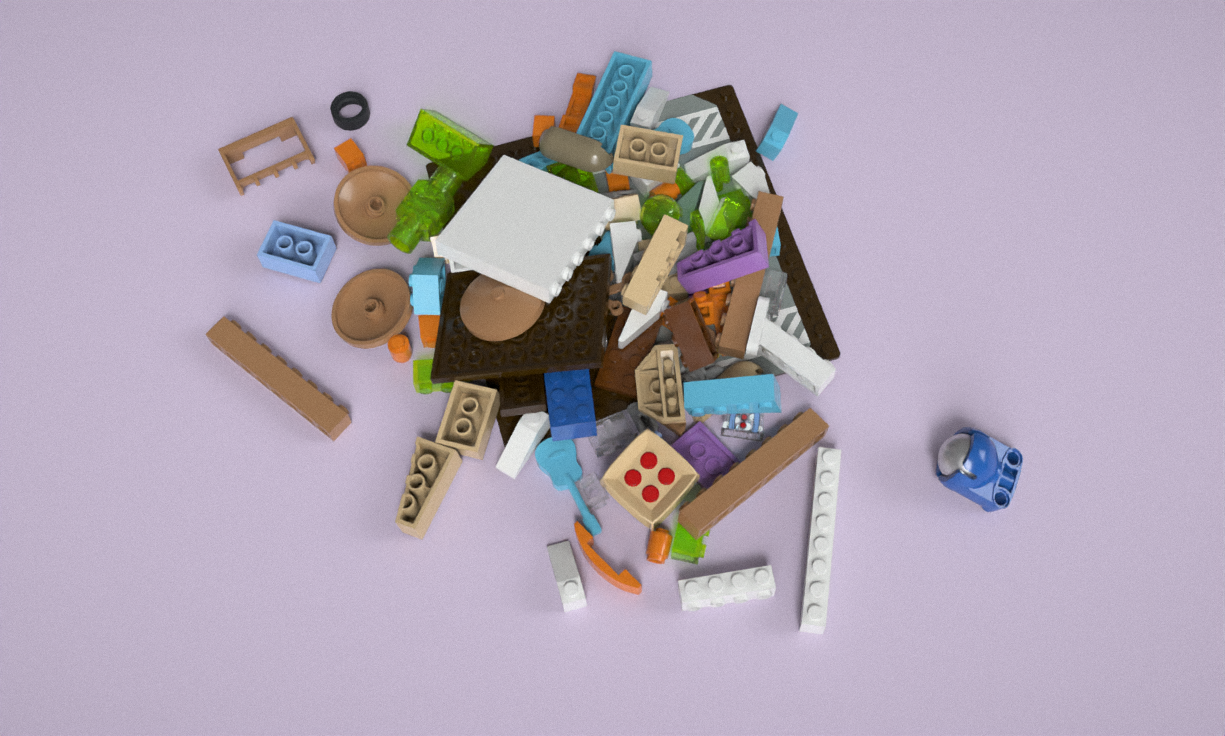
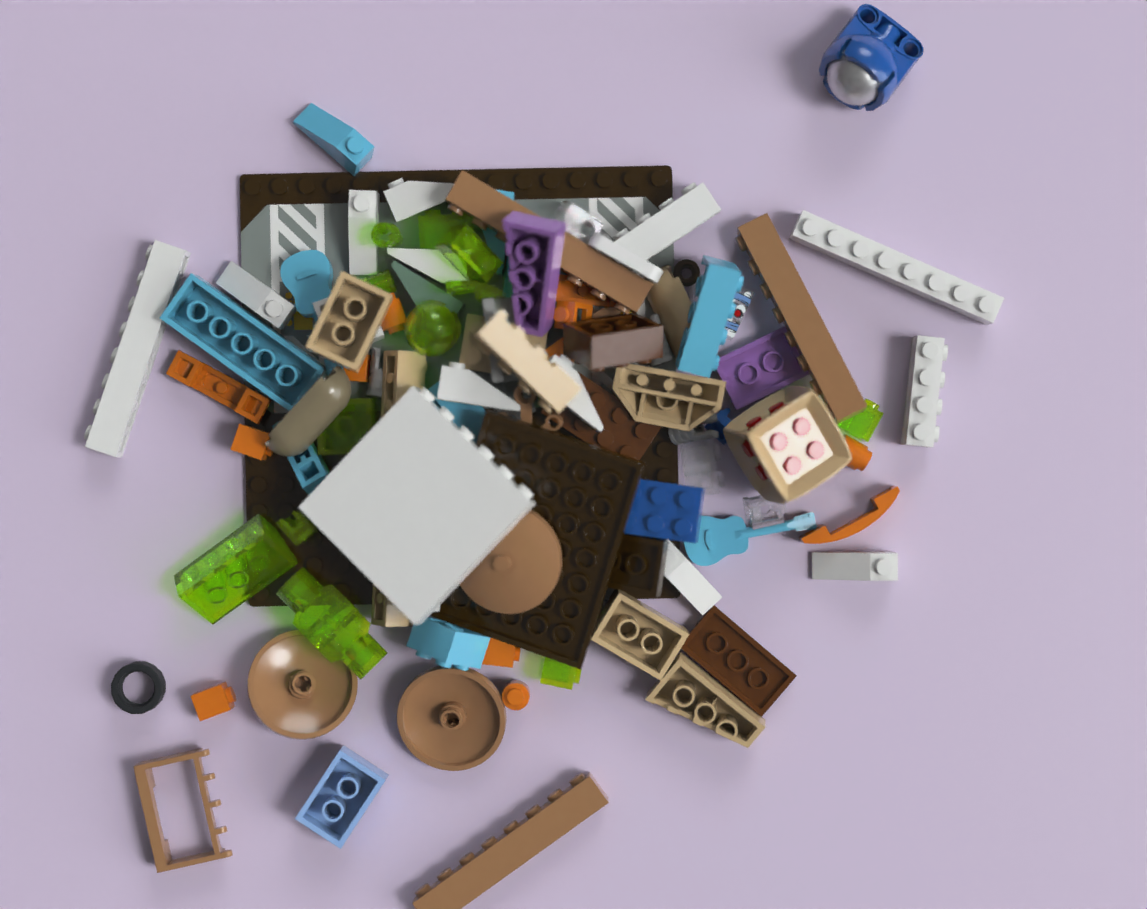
camera: 75 degrees left, 25 degrees up
(465, 505) = (737, 660): none -> reddish brown plate
(486, 163) = (299, 529): none -> clear neon green hinge
(583, 51) = (137, 349): none -> white brick

